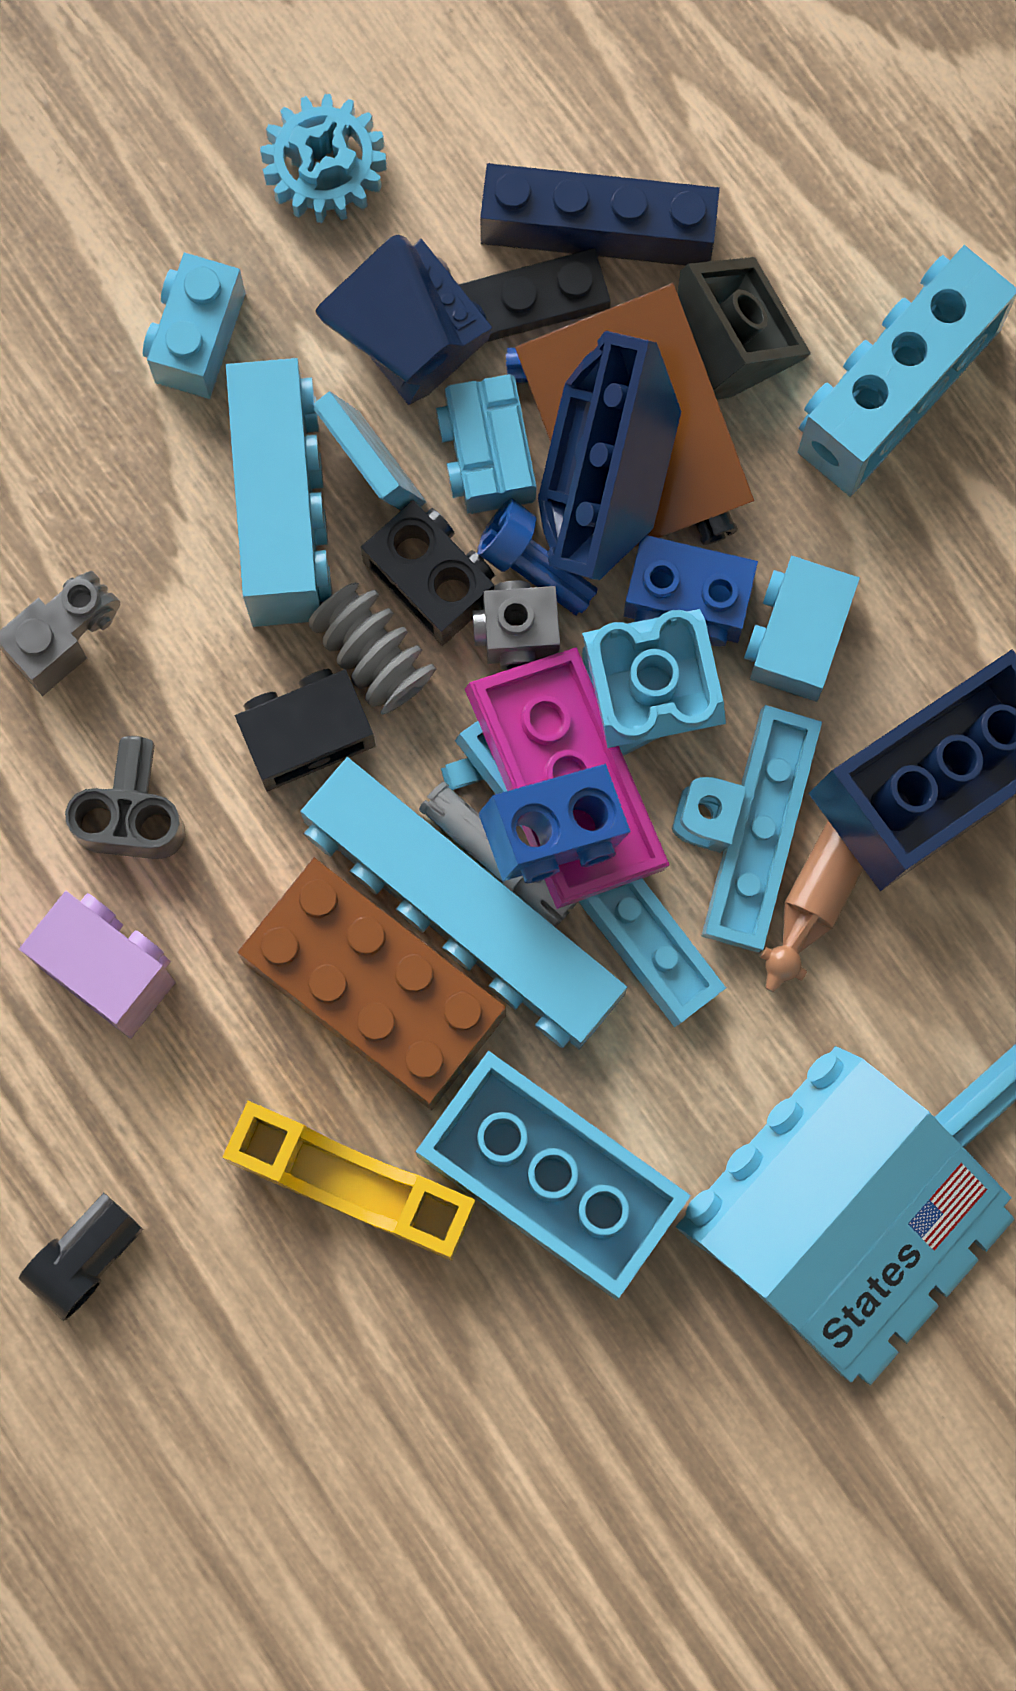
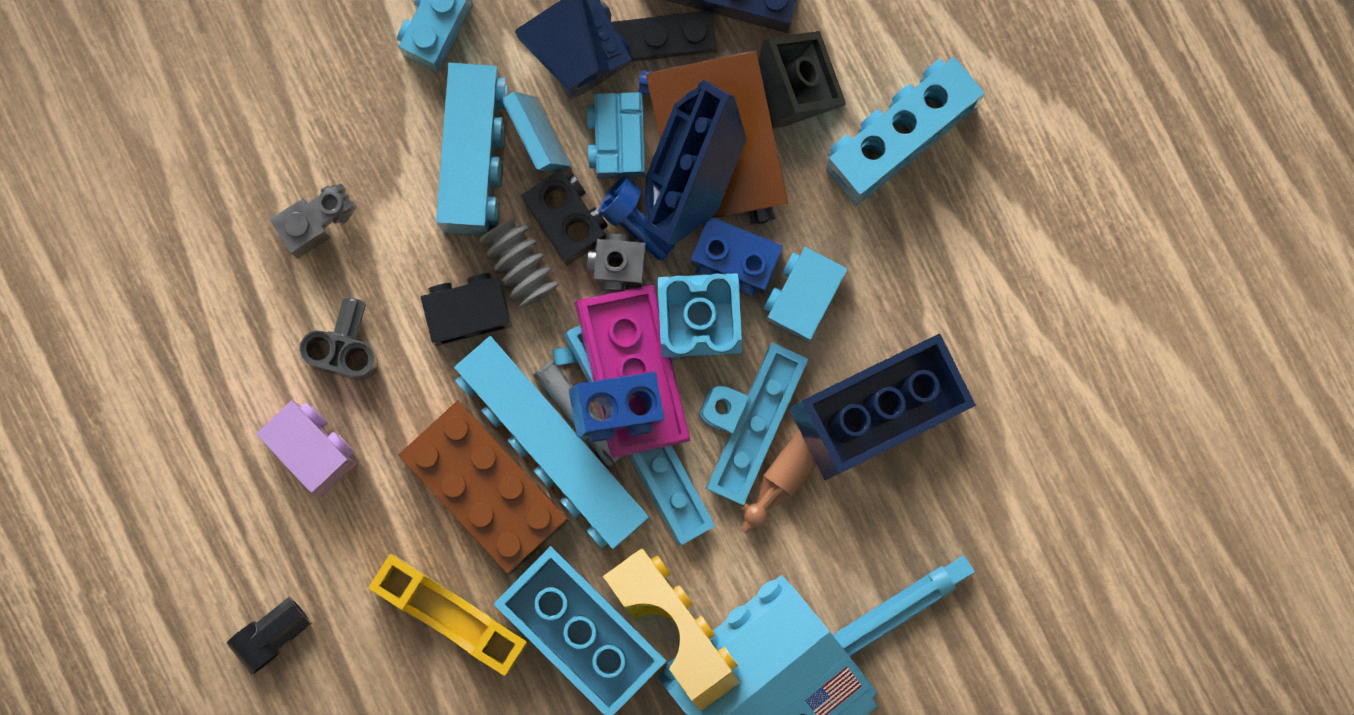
camera: 15 degrees right, 5 degrees up
(744, 1194) = (698, 665): none -> yellow arch

